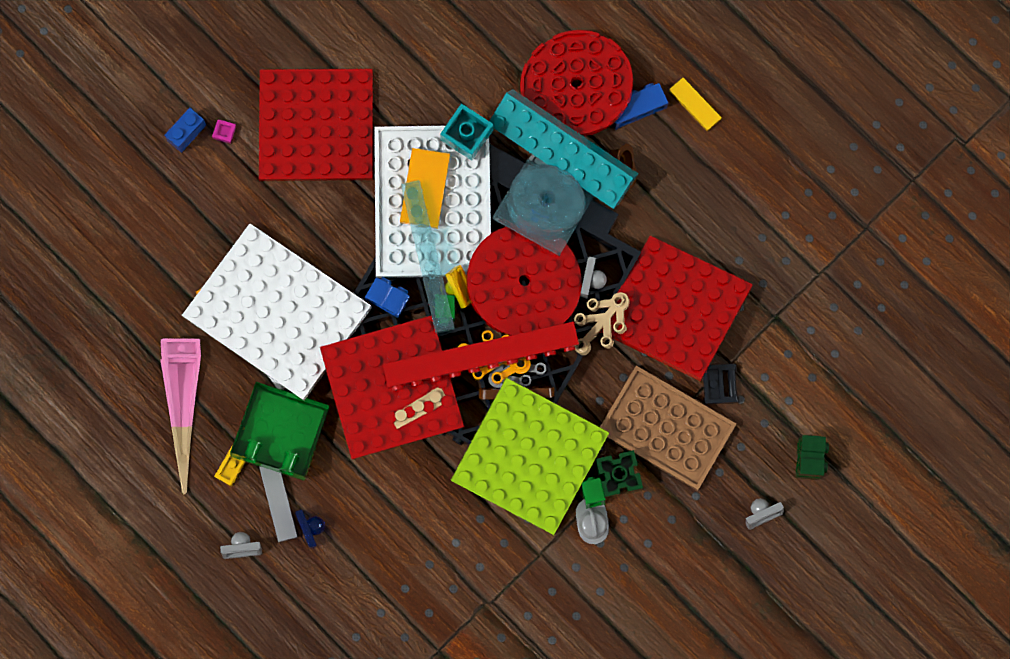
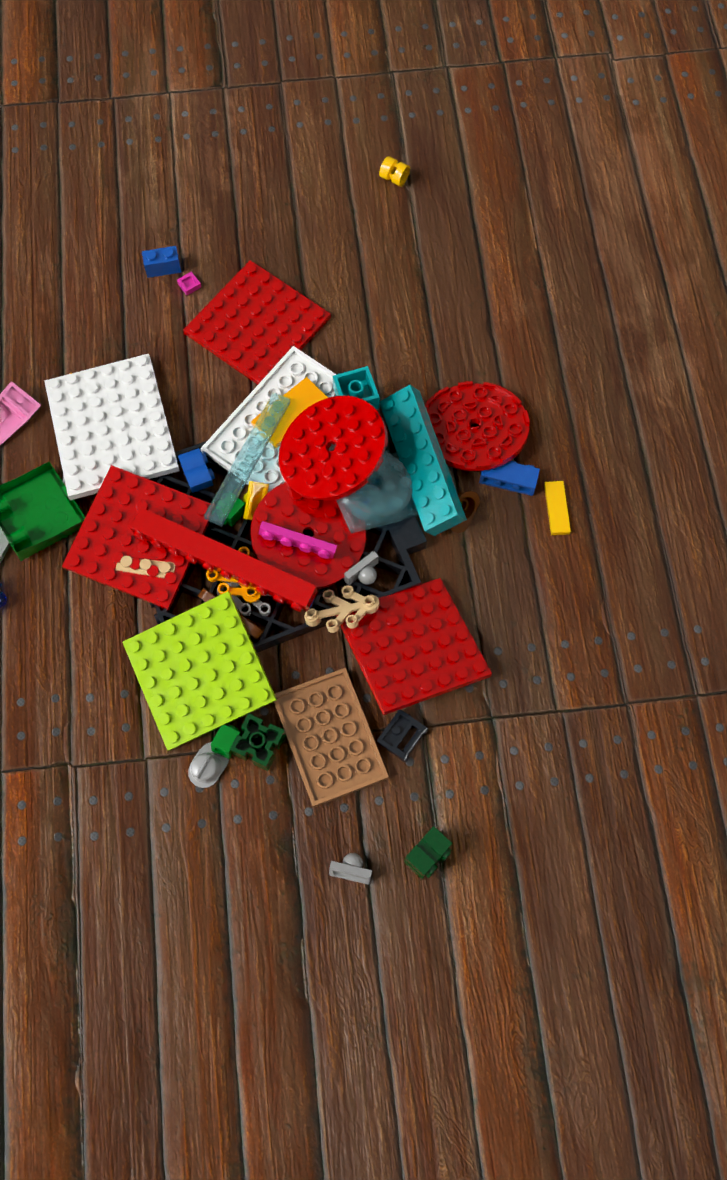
camera: 40 degrees right, 10 degrees down
(519, 298) = (292, 538): none -> dark pink plate
(520, 190) = (333, 474): none -> red plate

